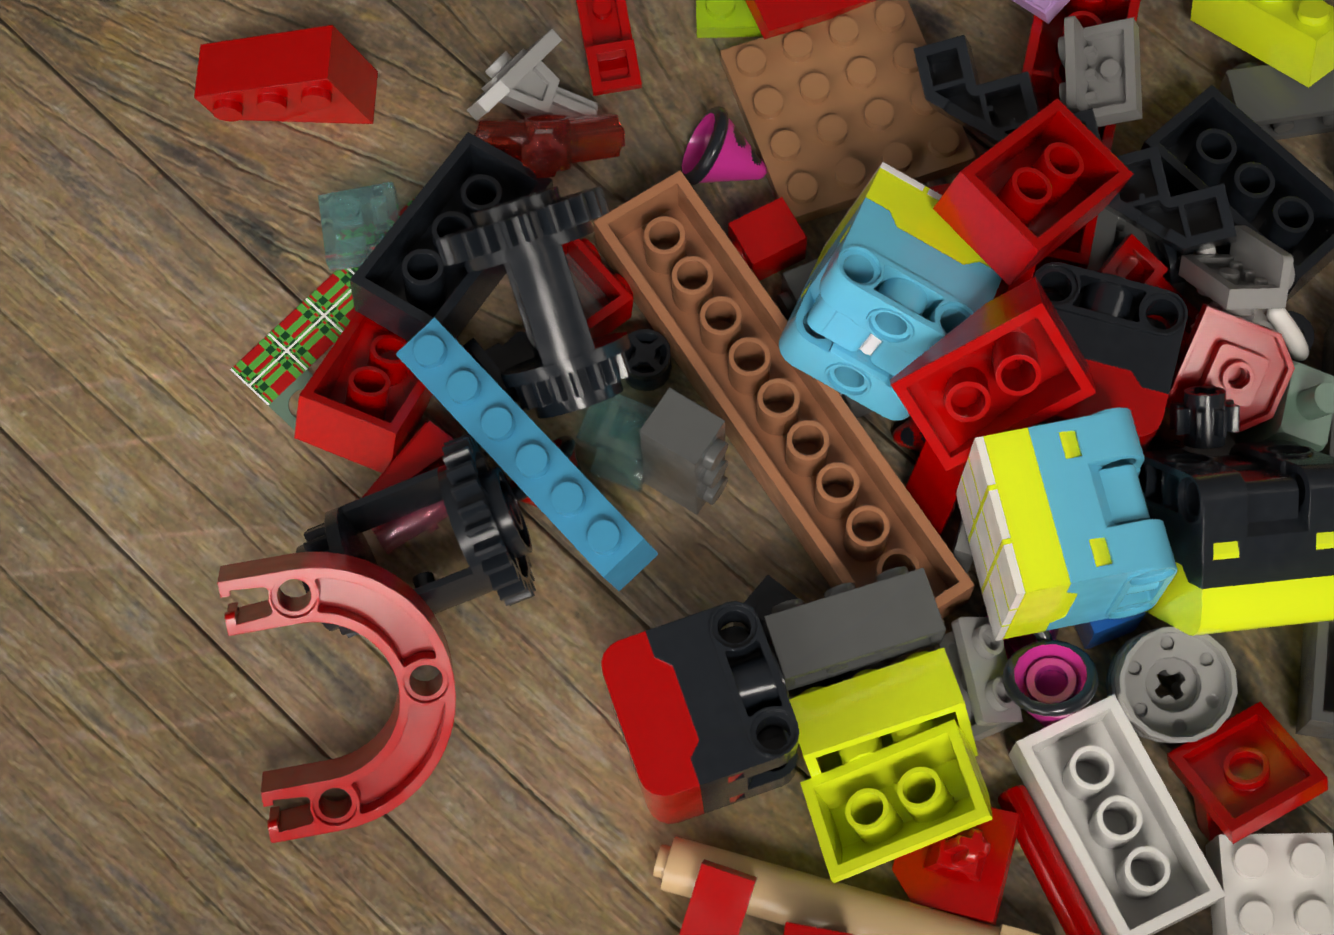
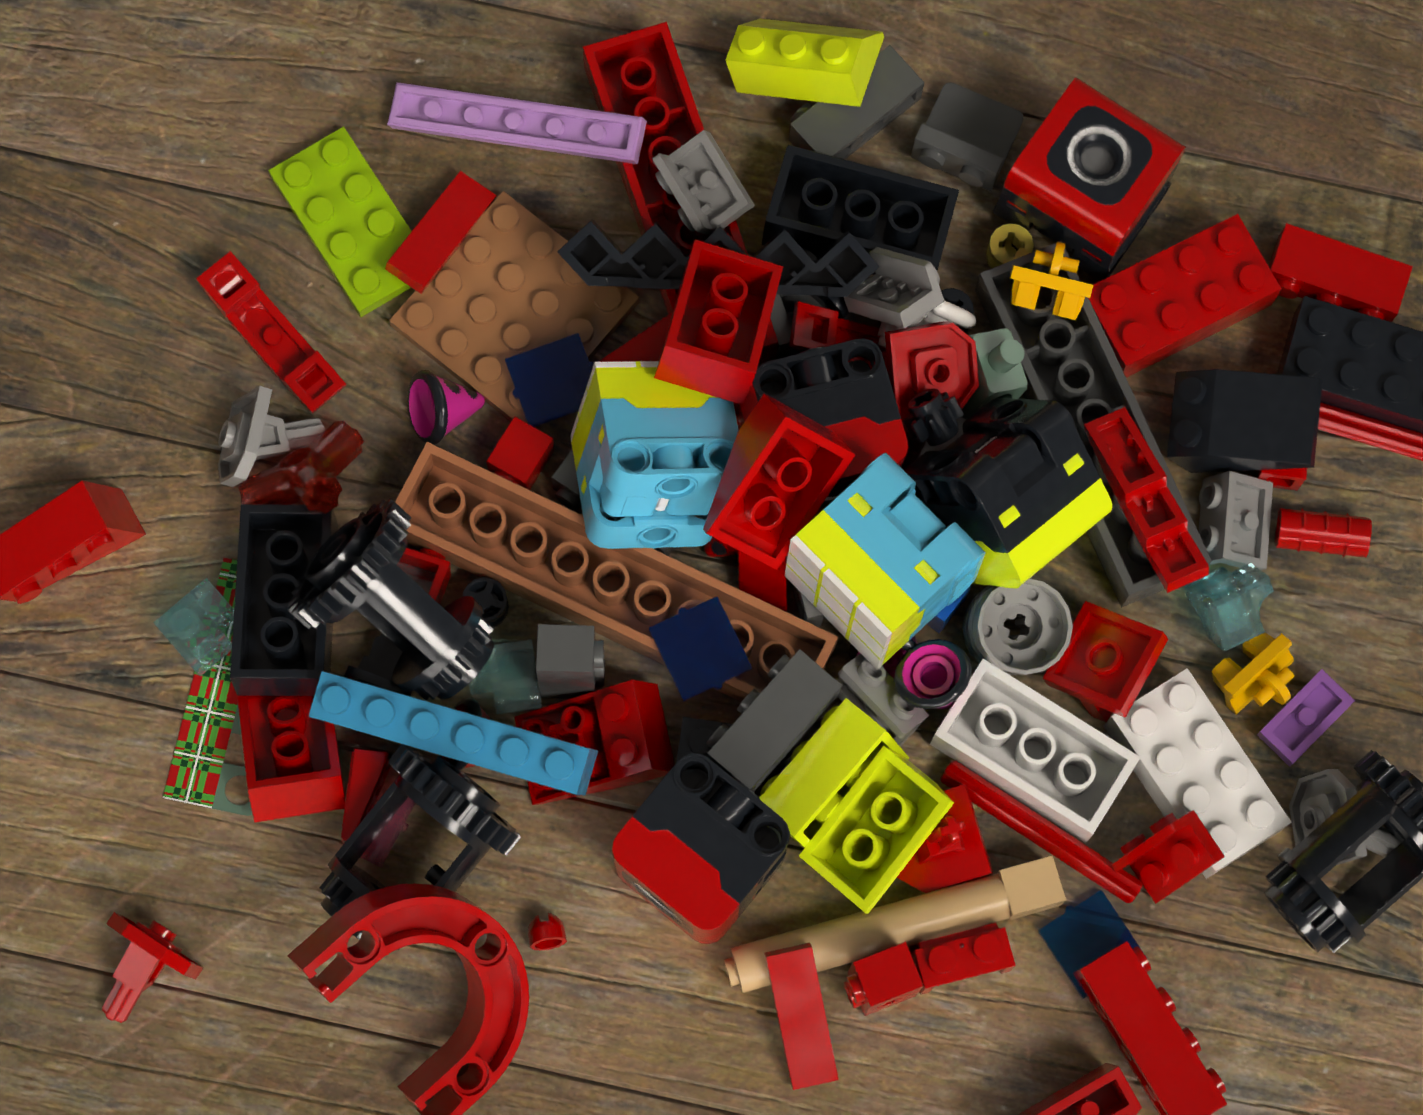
camera: 40 degrees left, 5 degrees up
(104, 505) = (142, 963): none -> red piece
(504, 712) = (546, 934): none -> red hinge
(701, 549) = (619, 722): none -> red slope
(825, 515) = (700, 648): none -> clear blue piece
(832, 181) = (550, 379): none -> clear blue piece

